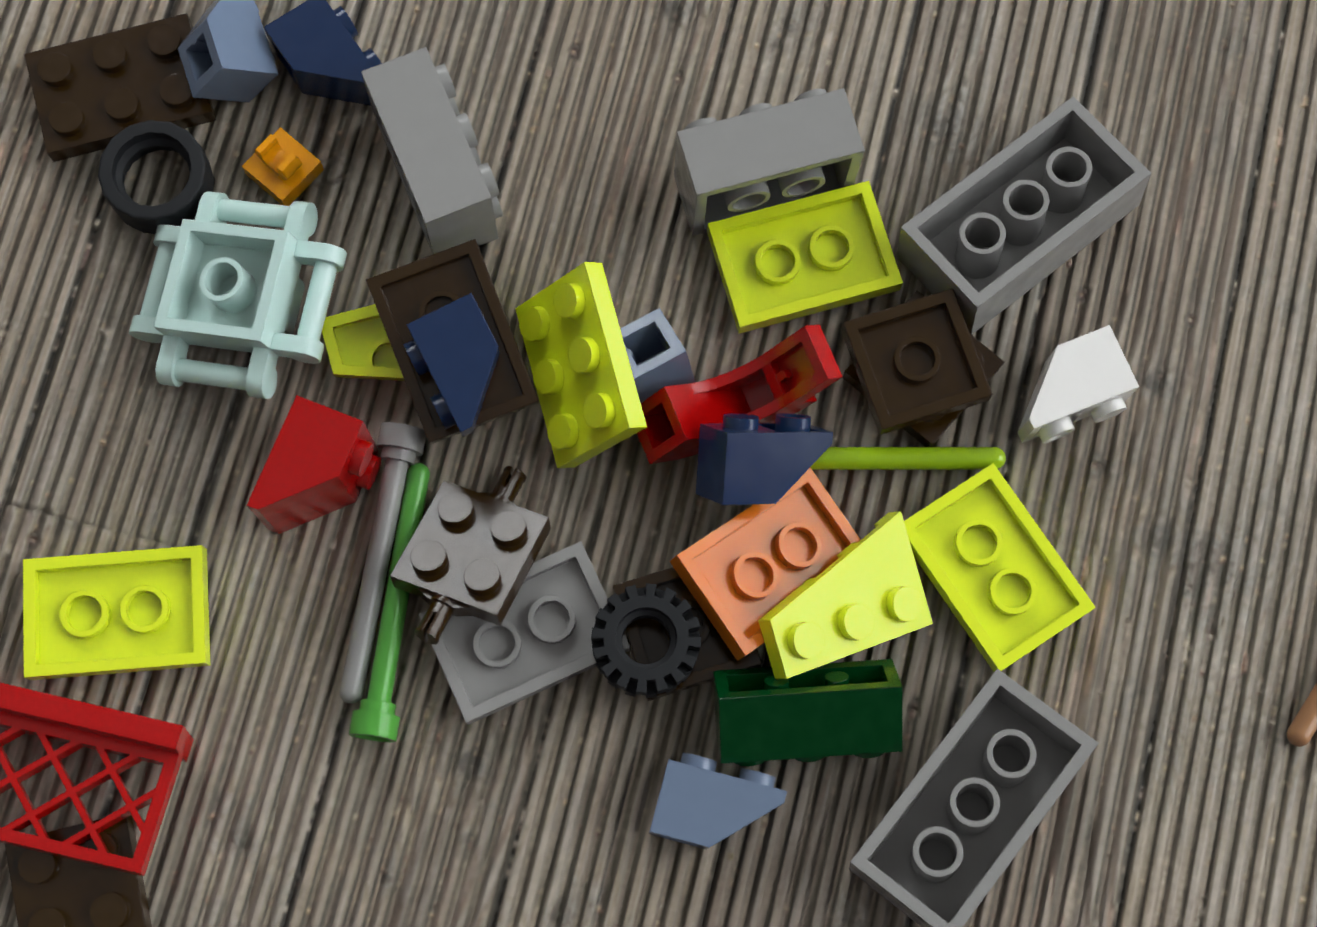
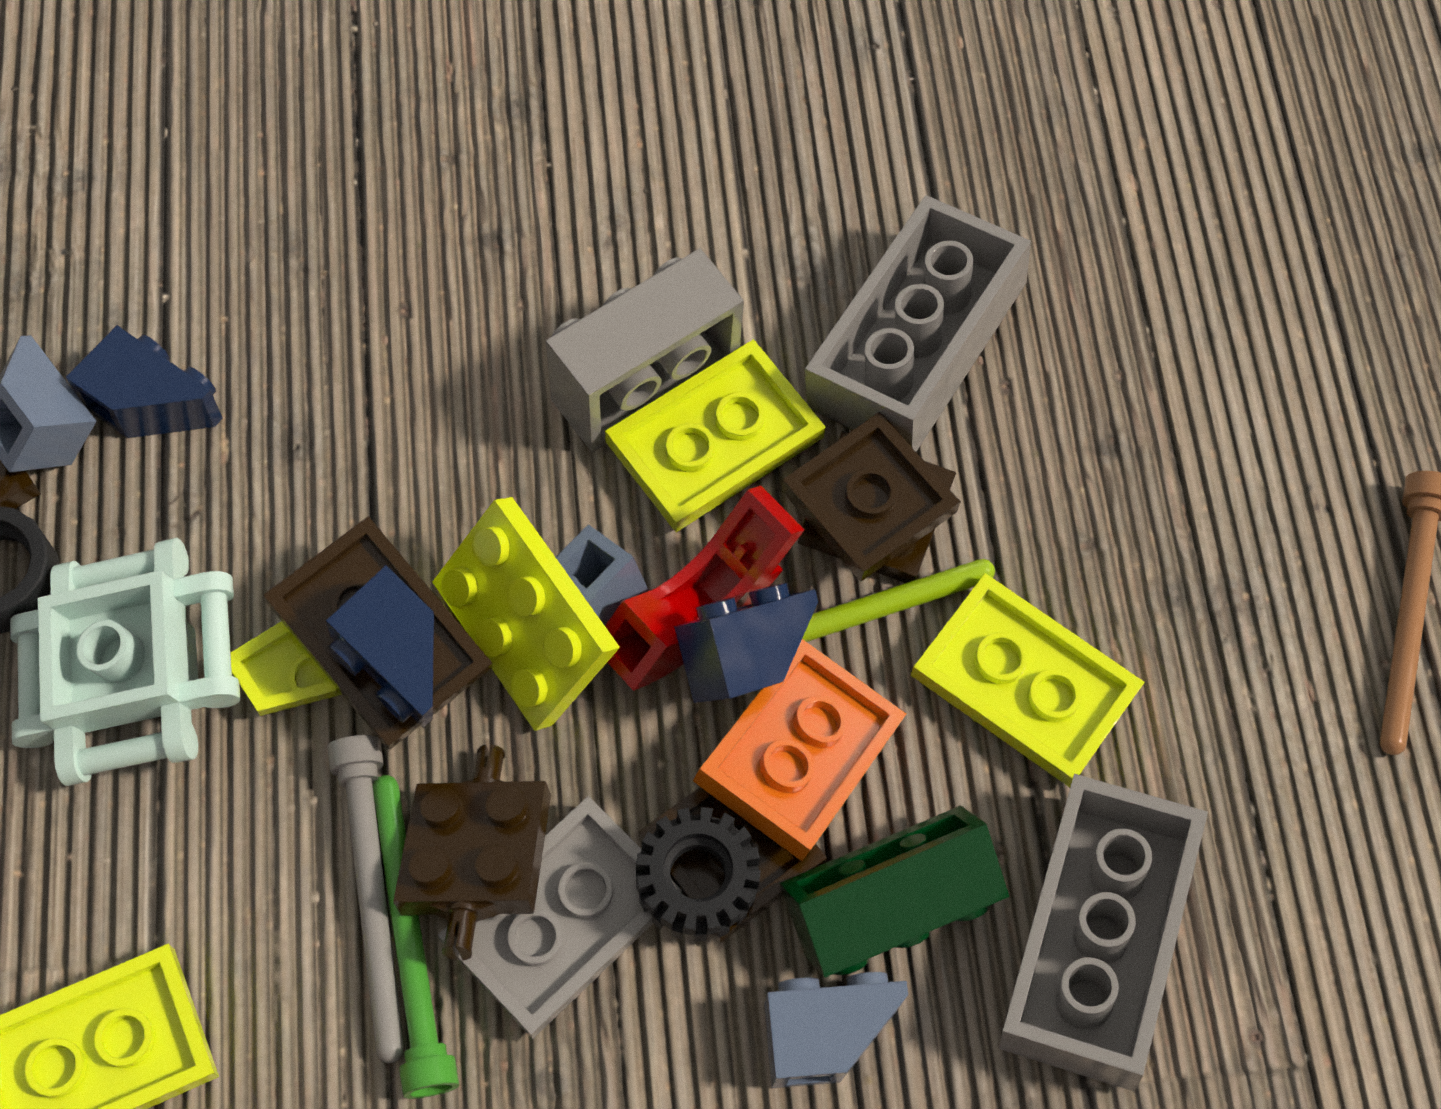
camera: 20 degrees left, 10 degrees down
(282, 167) = (130, 516): light orange tile -> none
(314, 467) = (270, 812): red slope -> none
(434, 150) = (290, 443): light grey brick -> none
(851, 605) = (897, 764): neon yellow wing -> none
(1077, 382) = (1035, 468): white slope -> none

